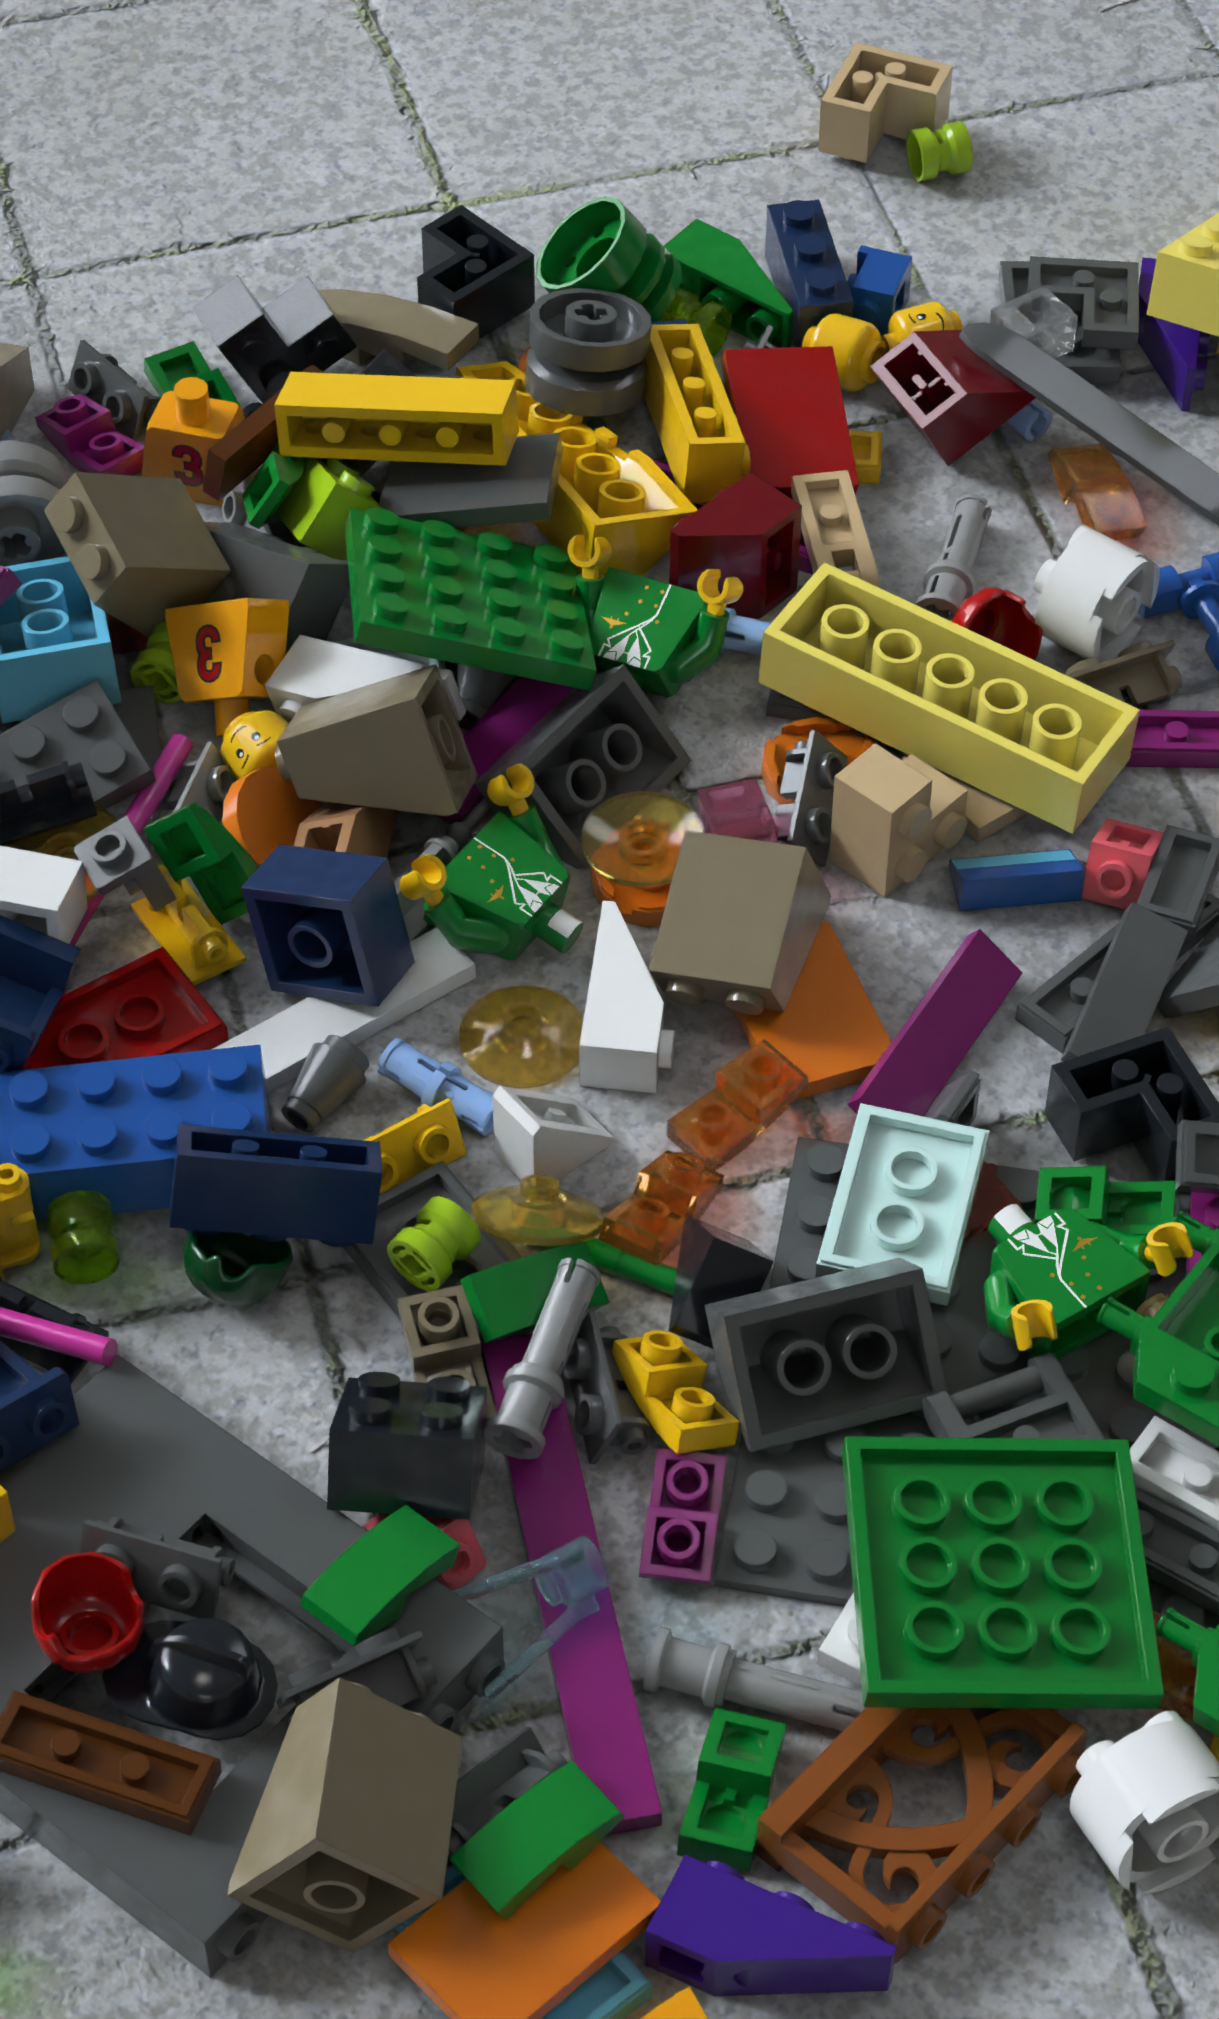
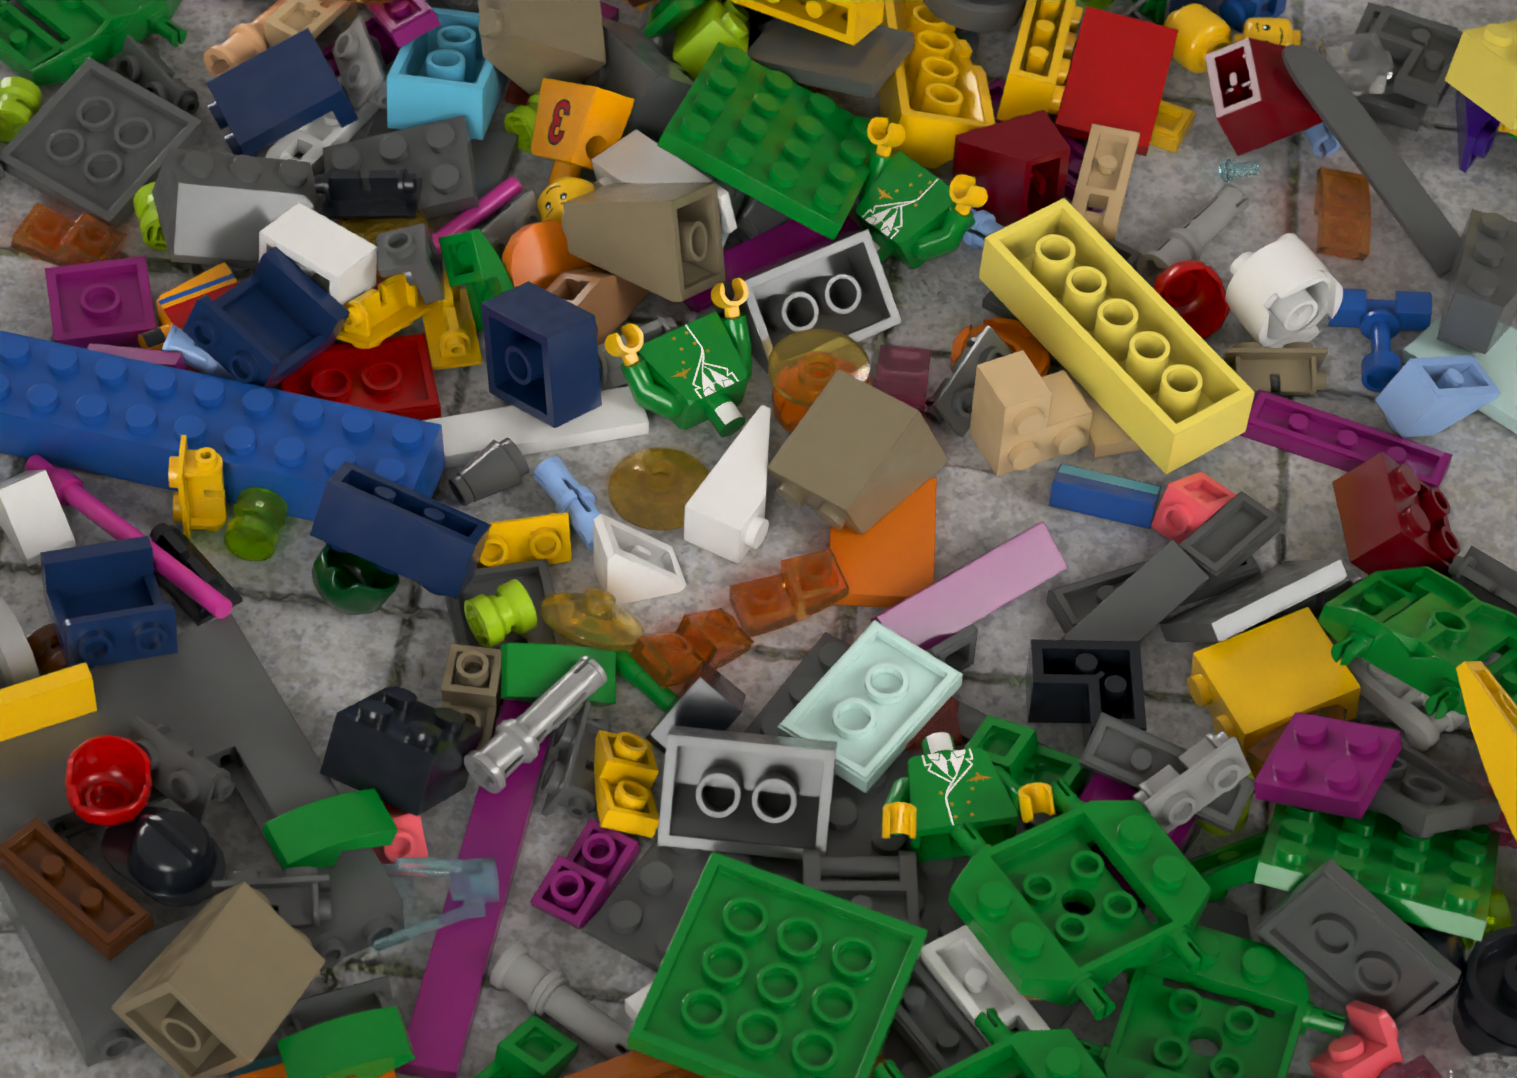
camera: 20 degrees right, 0 degrees up
(109, 939) = (382, 312): none -> yellow hinge
(951, 483) = (1230, 170): none -> clear light blue piece

